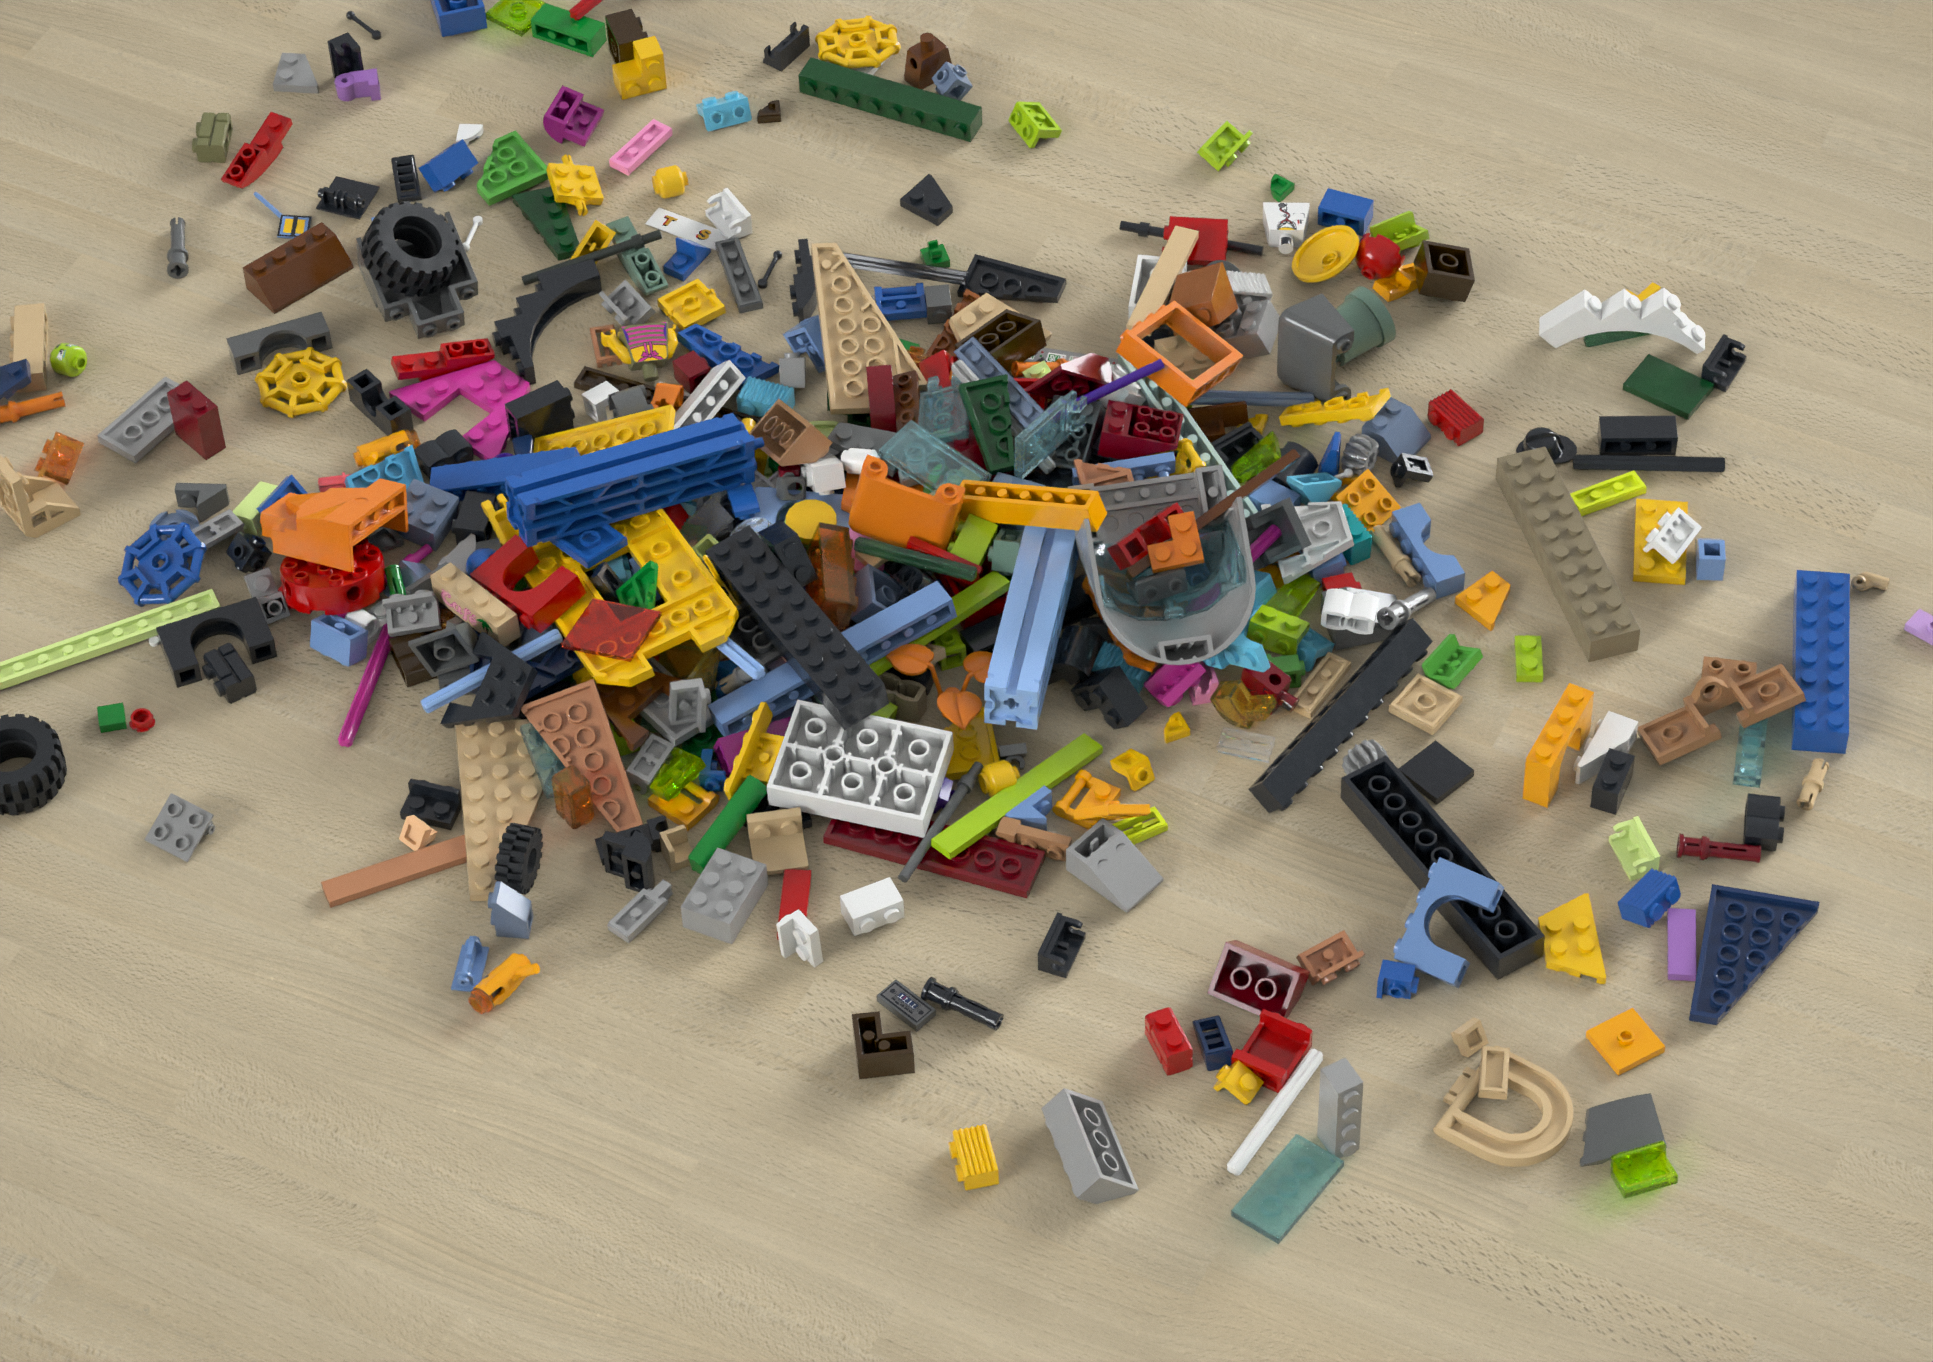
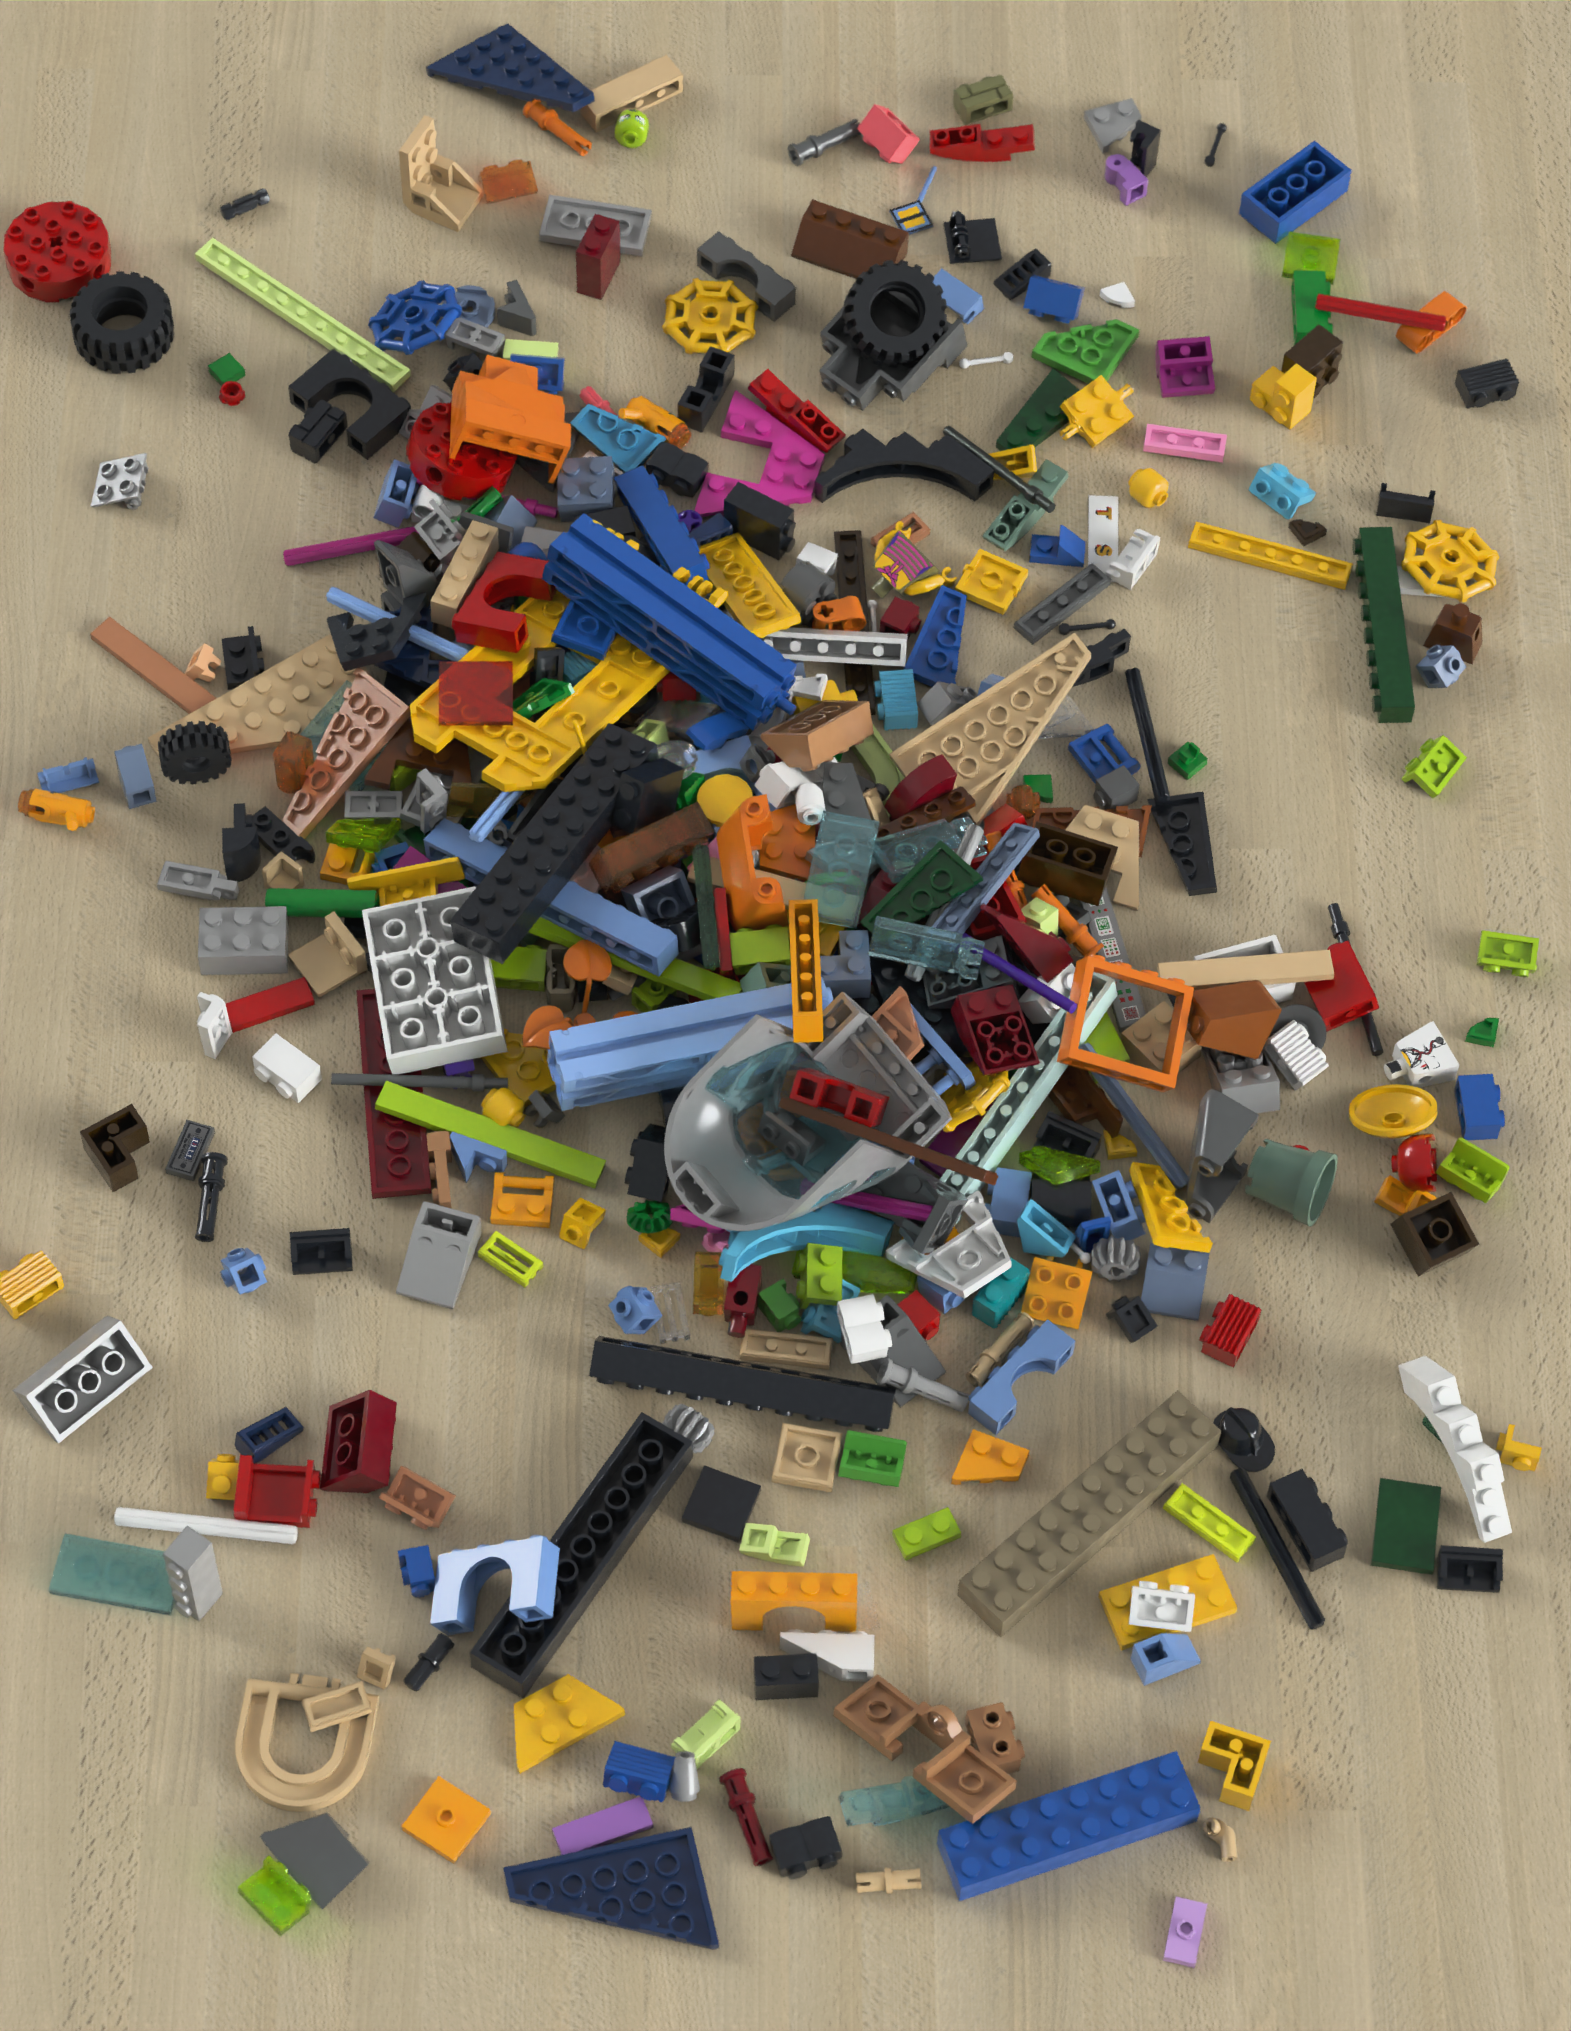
camera: 60 degrees right, 10 degrees up
(207, 203) = (887, 134): none -> coral brick
(628, 305) = (956, 527): light grey bracket -> none
(778, 141) = (1270, 555): none -> yellow tile
(928, 201) = (1265, 720): black wing -> none
(1053, 999) = (249, 1277): none -> medium blue brick
(1112, 811) = (495, 1222): light orange plate -> none
(1160, 719) = (638, 1217): none -> green gear
(1168, 1041) = (242, 1393): red brick -> none
(1183, 549) = (827, 1132): orange plate -> none
(1245, 764) = (635, 1310): none -> medium blue brick
(1315, 434) = (1117, 1202): none -> medium blue brick
(1480, 1003) = (428, 1662): none -> black axle
(1491, 752) = (773, 1545): none -> yellowish green slope
(1666, 865) = (684, 1777): none -> light grey cone
(1819, 541) = (1238, 1755): none -> yellow brick

